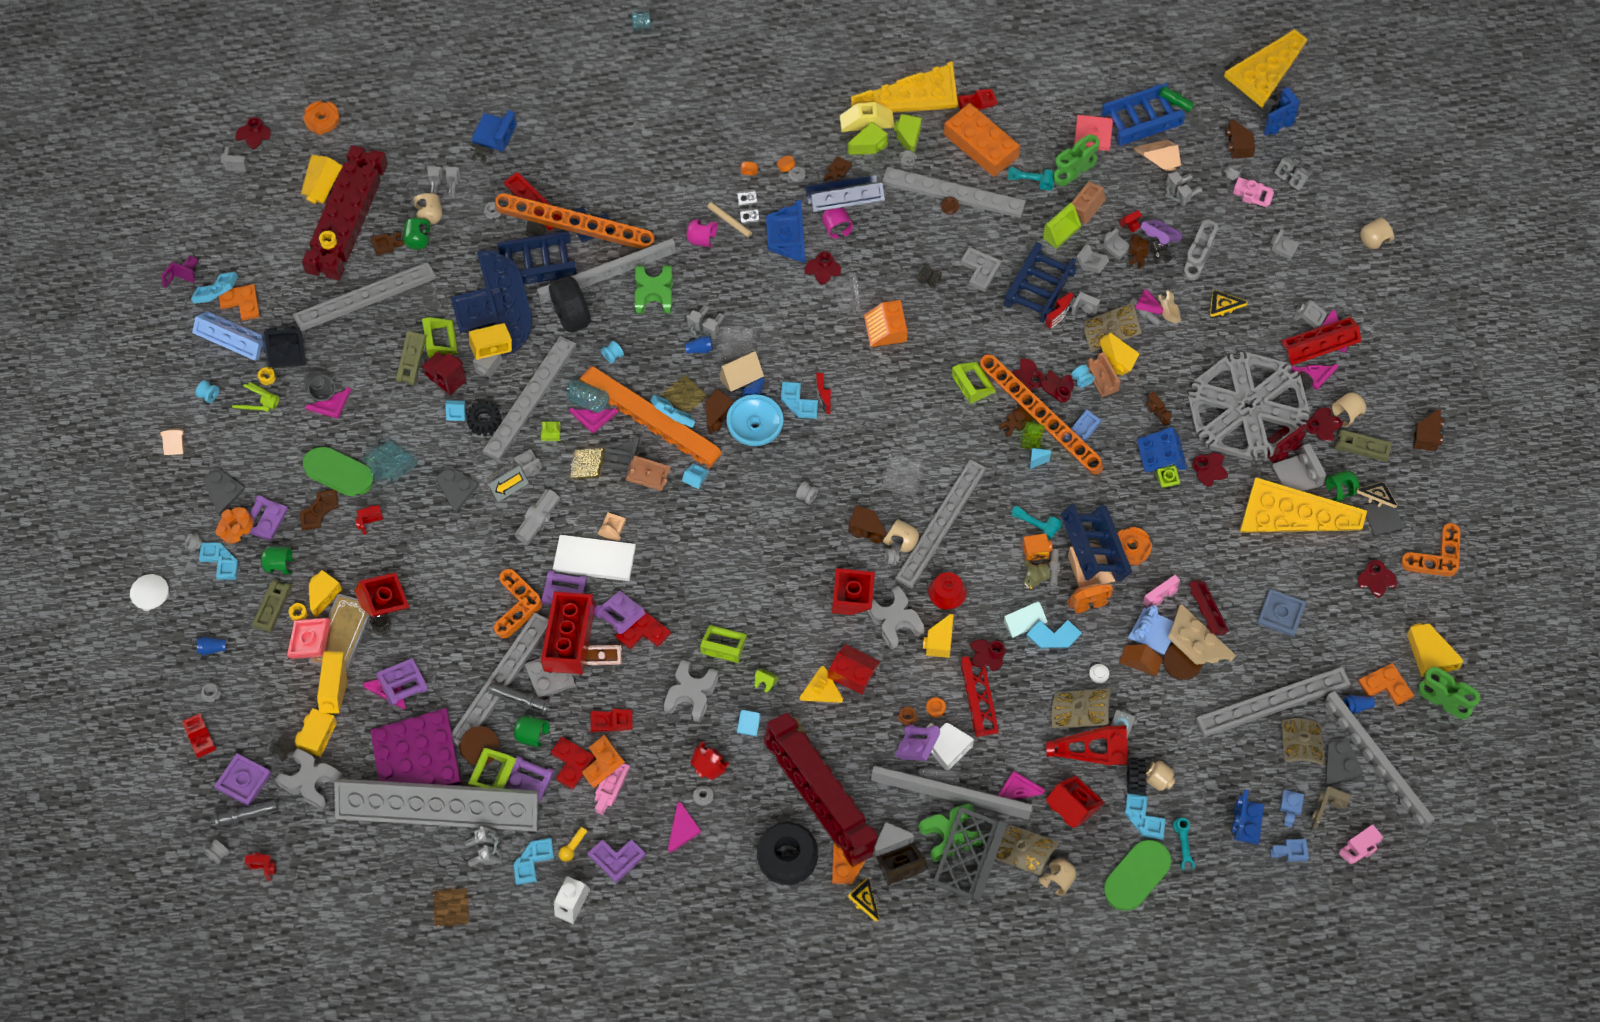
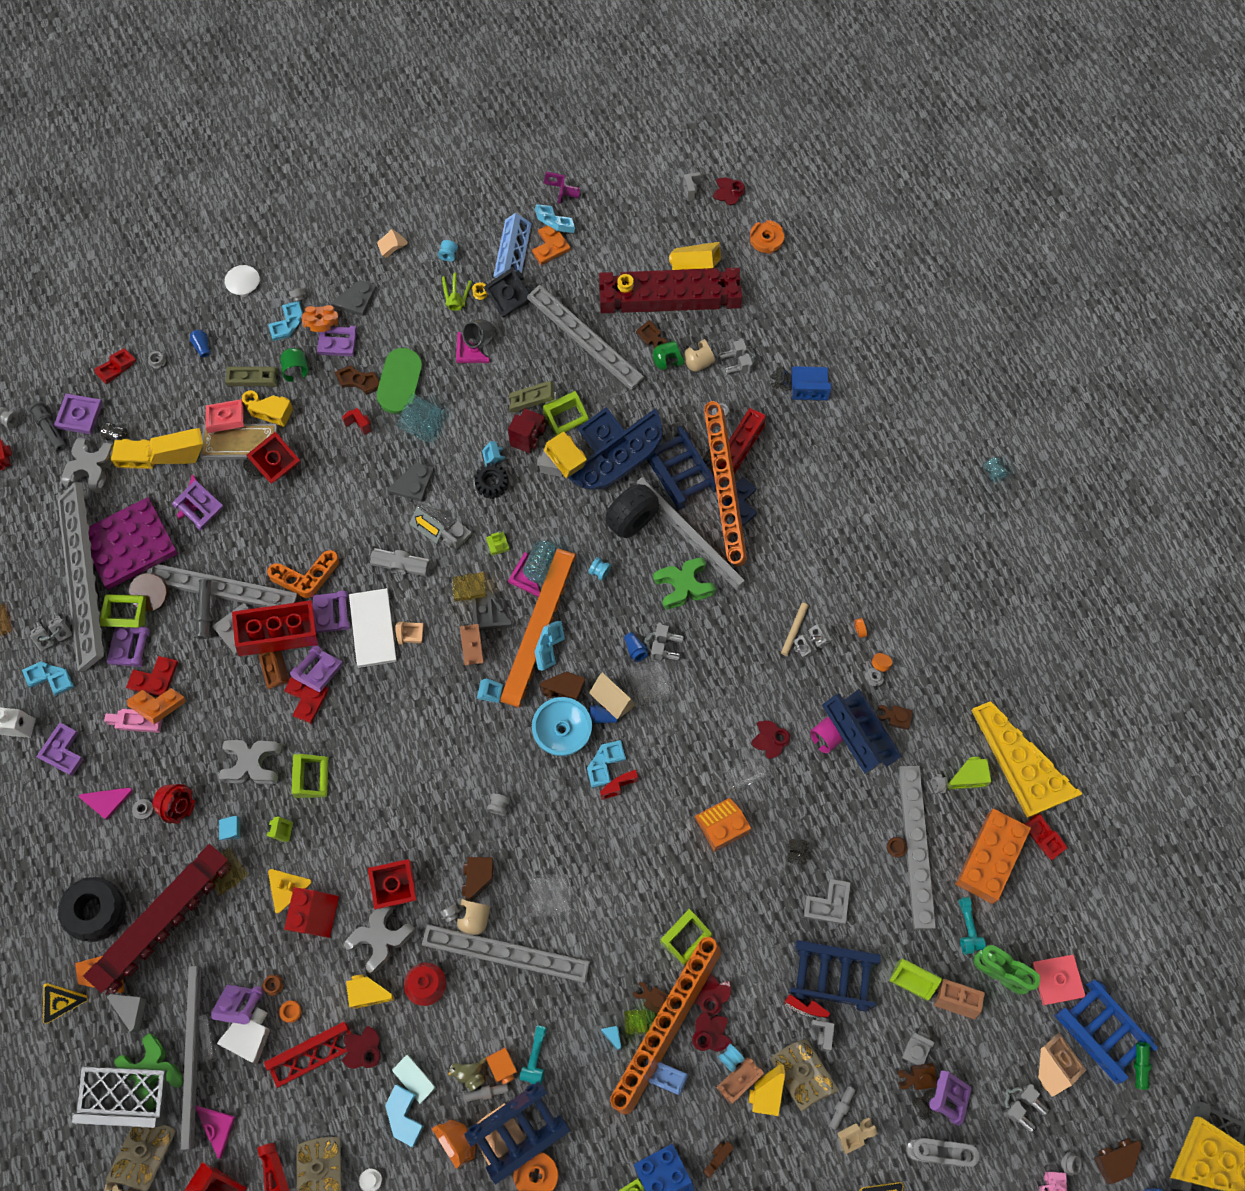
camera: 70 degrees right, 5 degrees up
(528, 730) = (172, 627): green helmet -> none
(529, 398) = (528, 513): light grey plate -> none
(567, 852) = (63, 704): yellow bar -> none
(611, 721) = (204, 699): red slope -> none
(684, 394) = (577, 652): clear yellow piece -> none
(699, 234) = (760, 603): dark pink helmet -> none
(786, 232) = (799, 688): blue wing -> none
(863, 114) = (971, 726): light yellow slope -> none
(868, 141) = (942, 736): lime slope -> none
(901, 863) = (104, 1028): dark brown slope -> none
(1091, 261) = (885, 1026): light grey bracket -> none
(1132, 221) = (955, 1057): red tile -> none
(1148, 303) = (849, 1107): dark pink tile -> none

